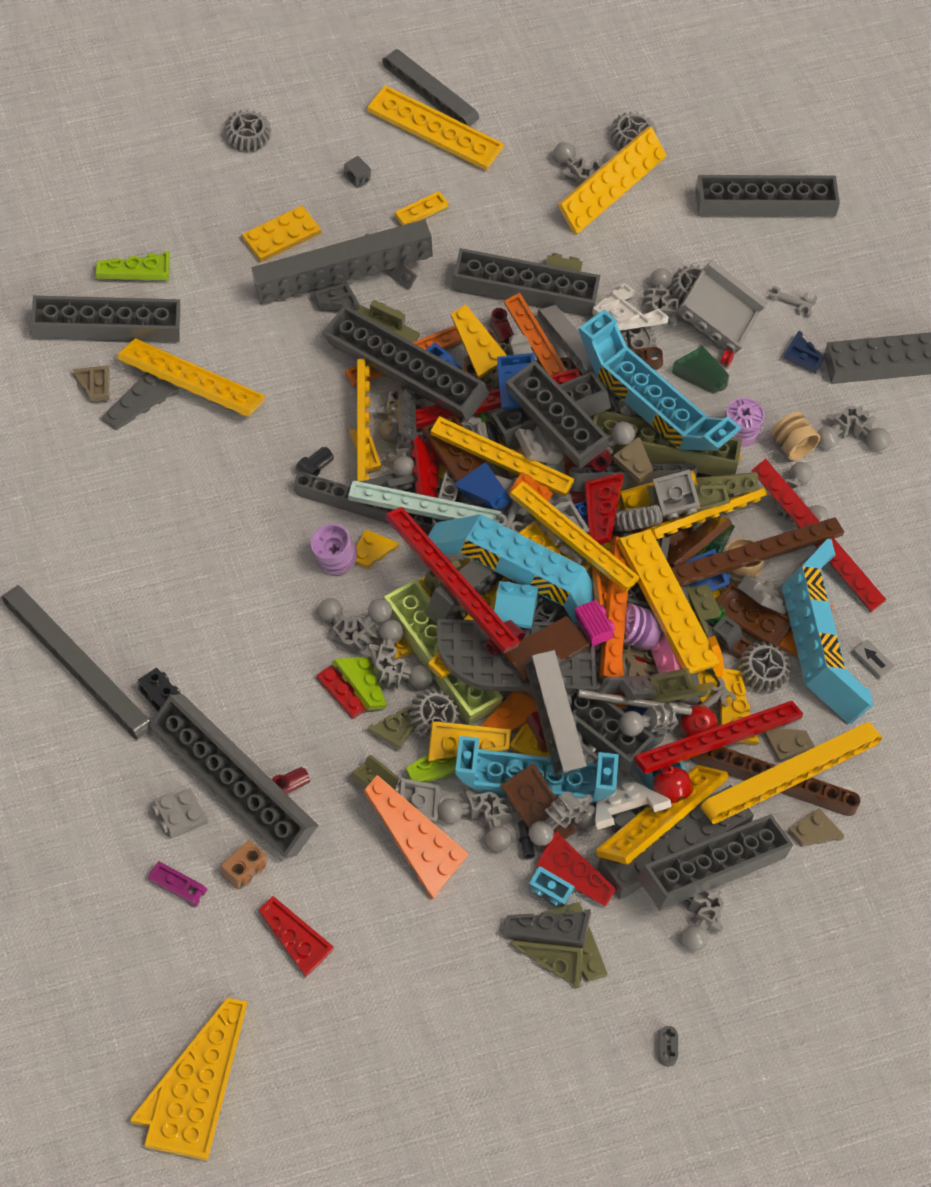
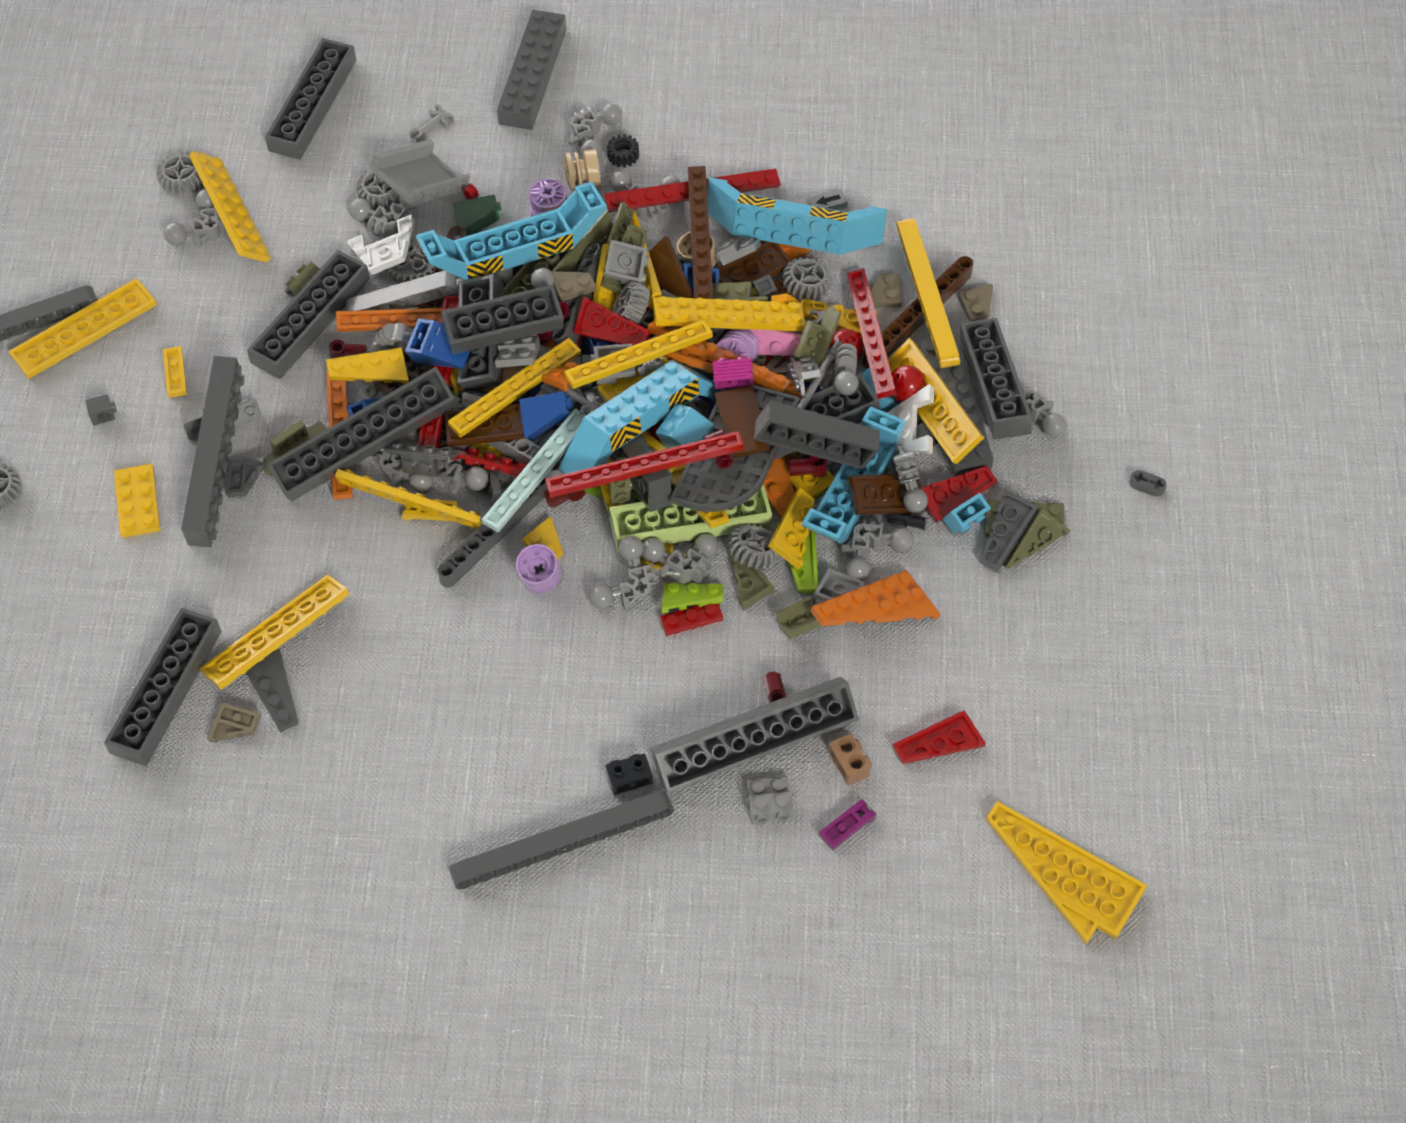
camera: 60 degrees left, 0 degrees up
(142, 268) = (112, 638): lime wing -> none
(315, 462) = (427, 558): black piece -> none
(804, 354) = (494, 135): dark blue wing -> none
(845, 456) = (623, 143): none -> black tyre

